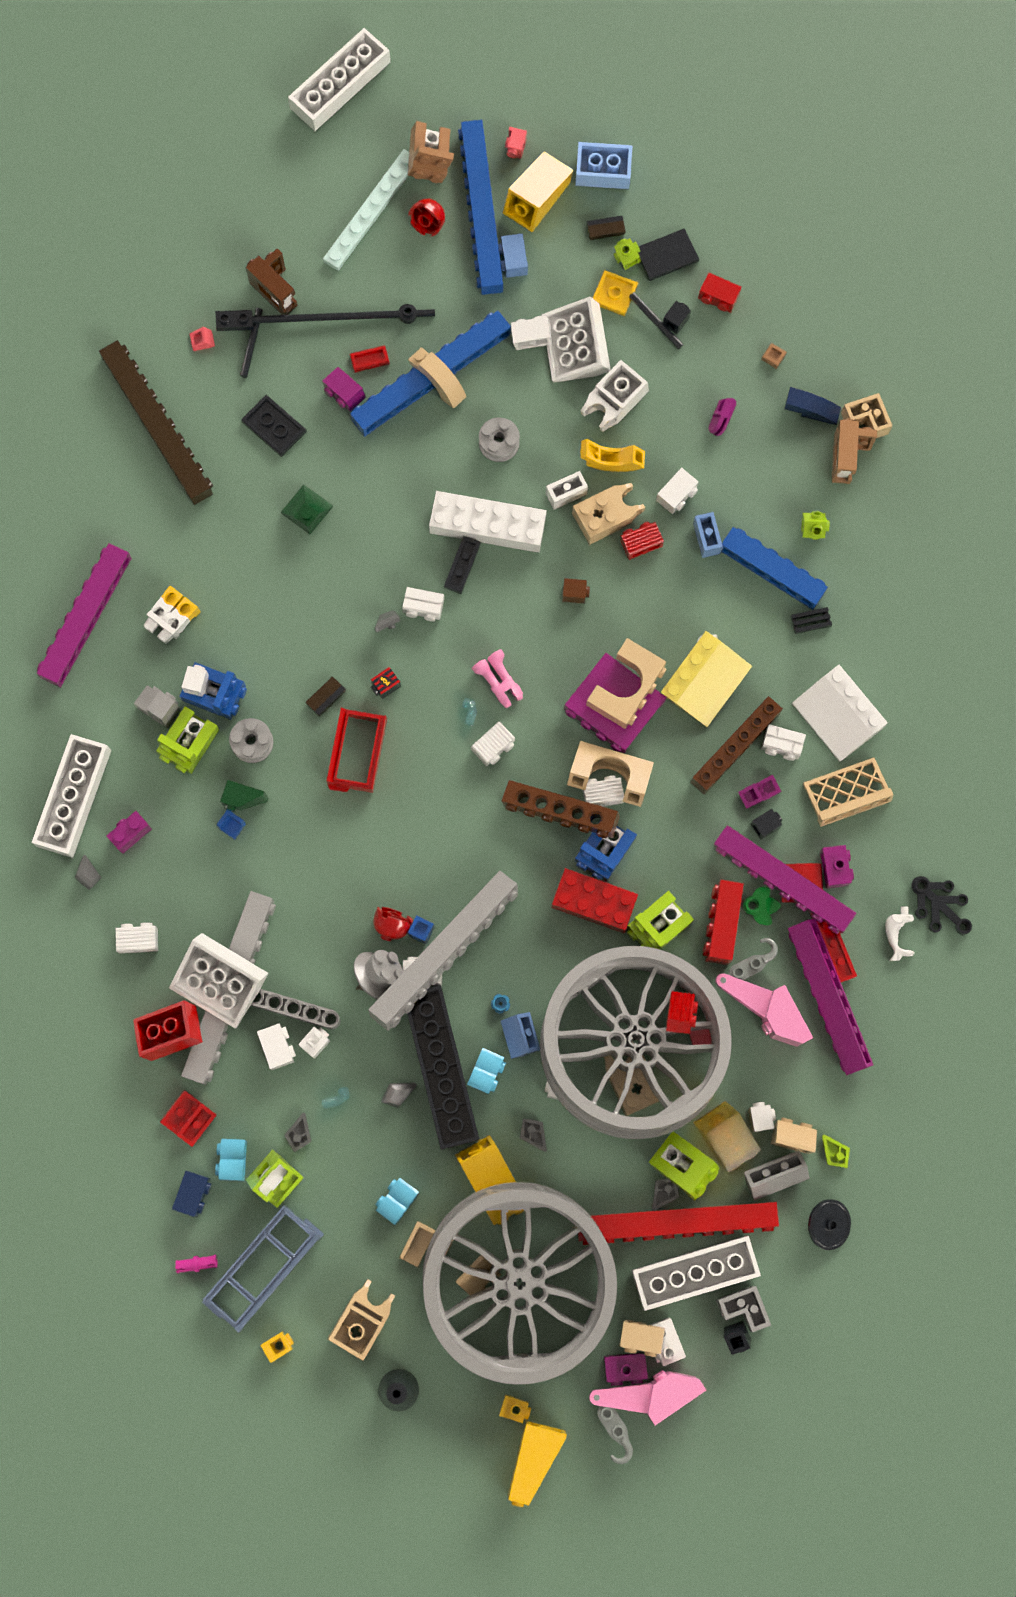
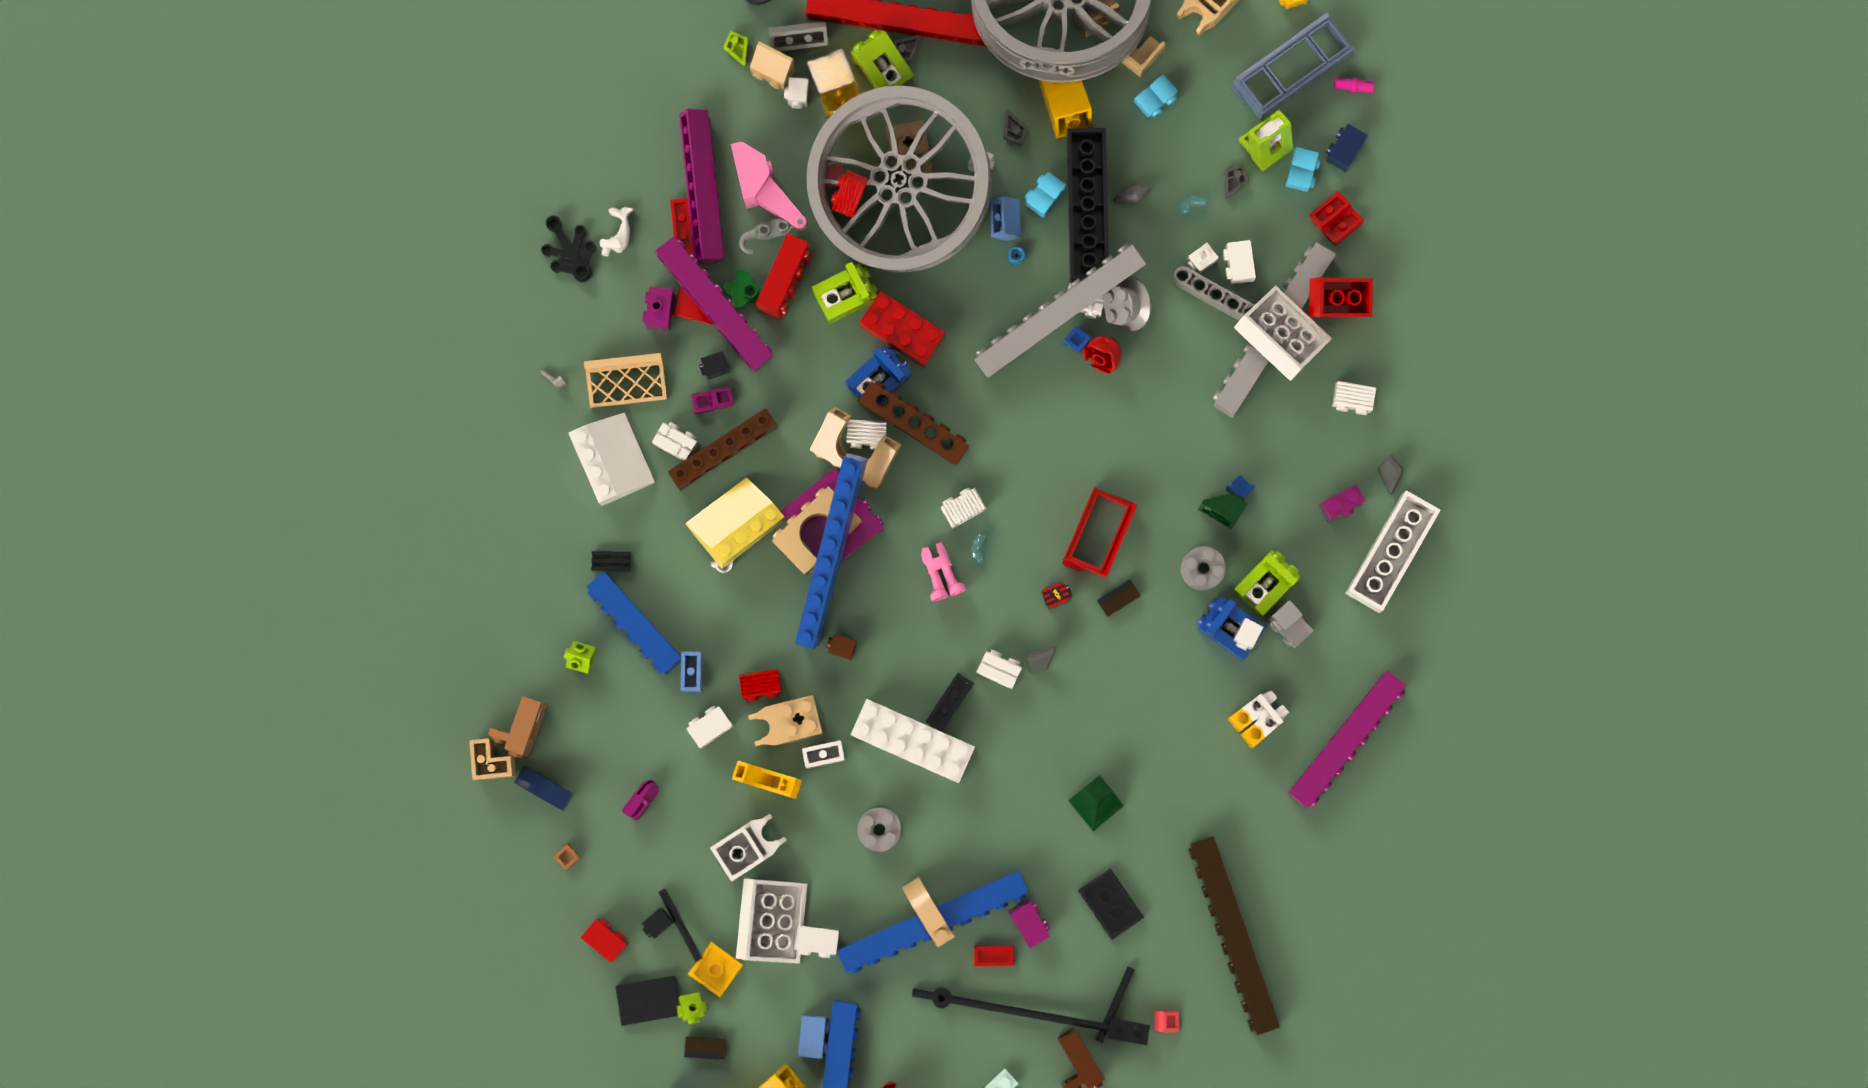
camera: 160 degrees left, 5 degrees up
(607, 665) = (831, 550): none -> blue brick
(911, 773) = (558, 382): none -> light grey hand

